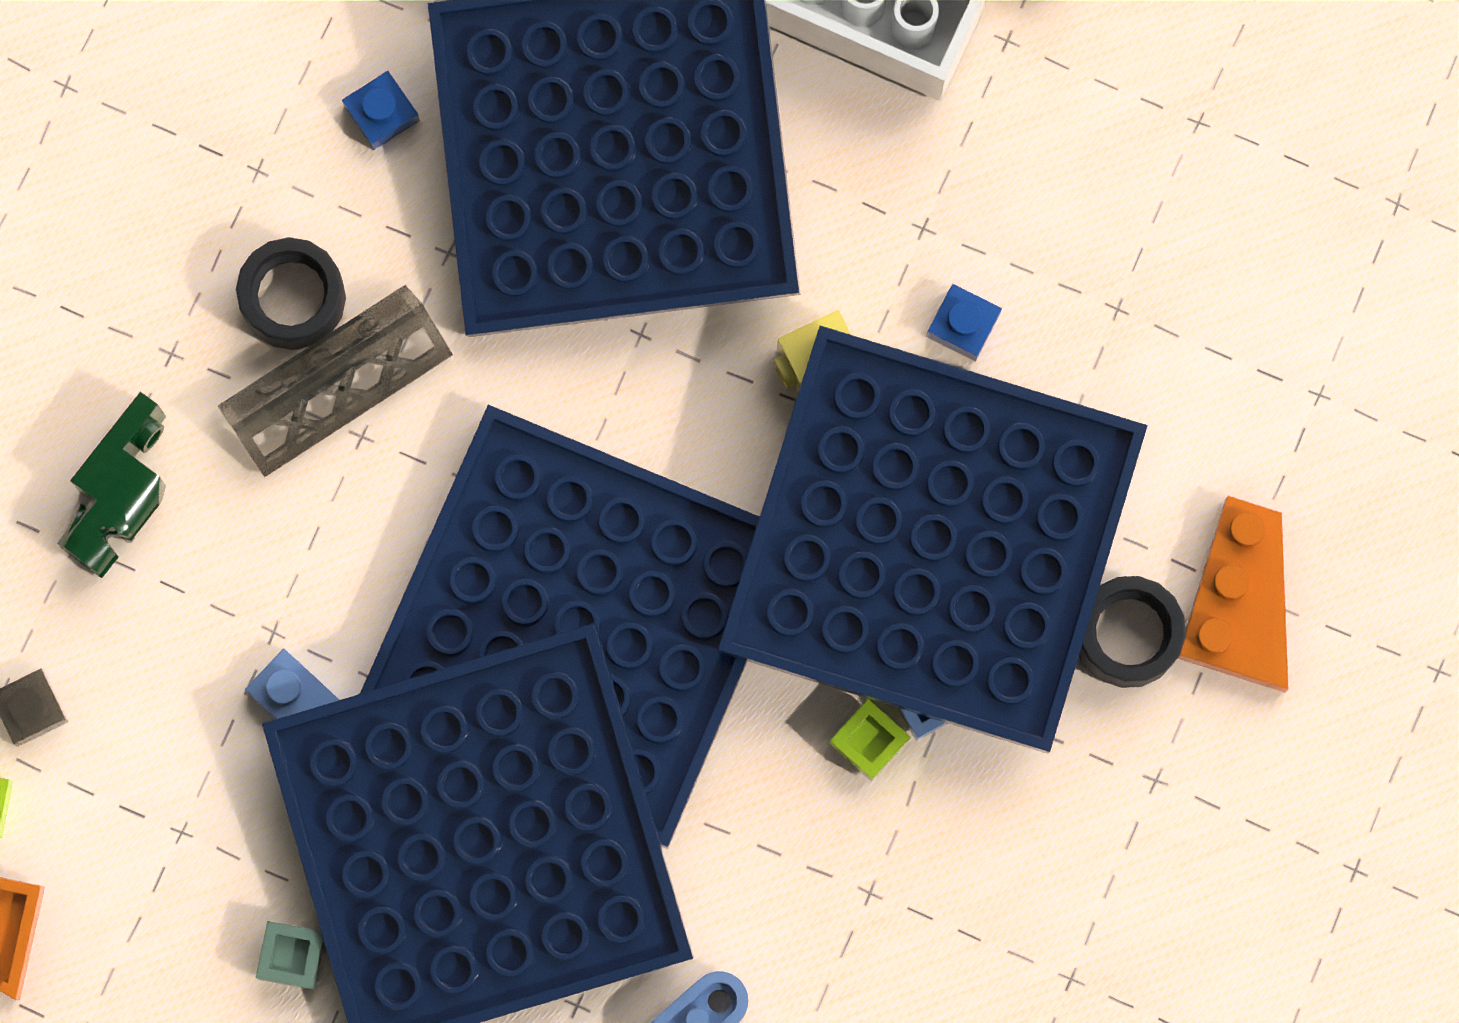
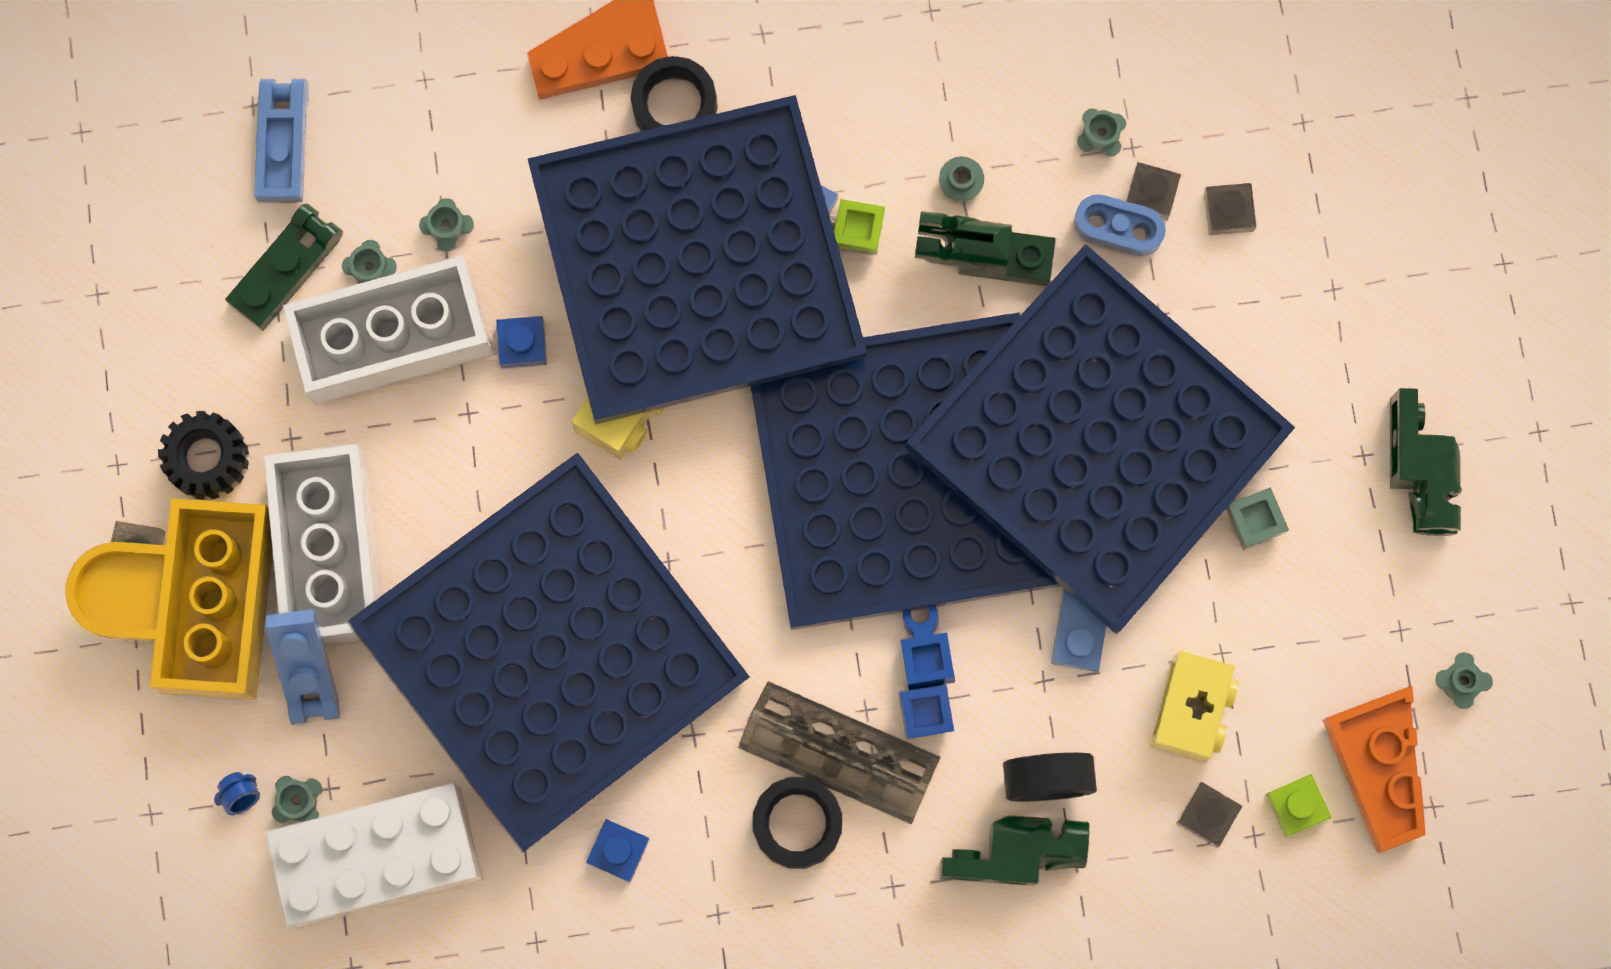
camera: 120 degrees left, 0 degrees up
(131, 726) = (1192, 678): none -> light yellow brick
(165, 561) = (1049, 776): none -> black tyre
(316, 488) = (926, 711): none -> blue plate
(371, 524) = (927, 654): none -> blue plate
(758, 859) = (985, 249): none -> dark green plate
(855, 903) = (957, 191): none -> sand green plate
(1054, 188) = (387, 330): none -> white brick
(1145, 305) = (438, 214): none -> sand green plate
(1146, 201) = (368, 253): none -> sand green plate
(1194, 131) = (284, 267): none -> dark green plate
(1336, 205) = (281, 141): none -> medium blue plate

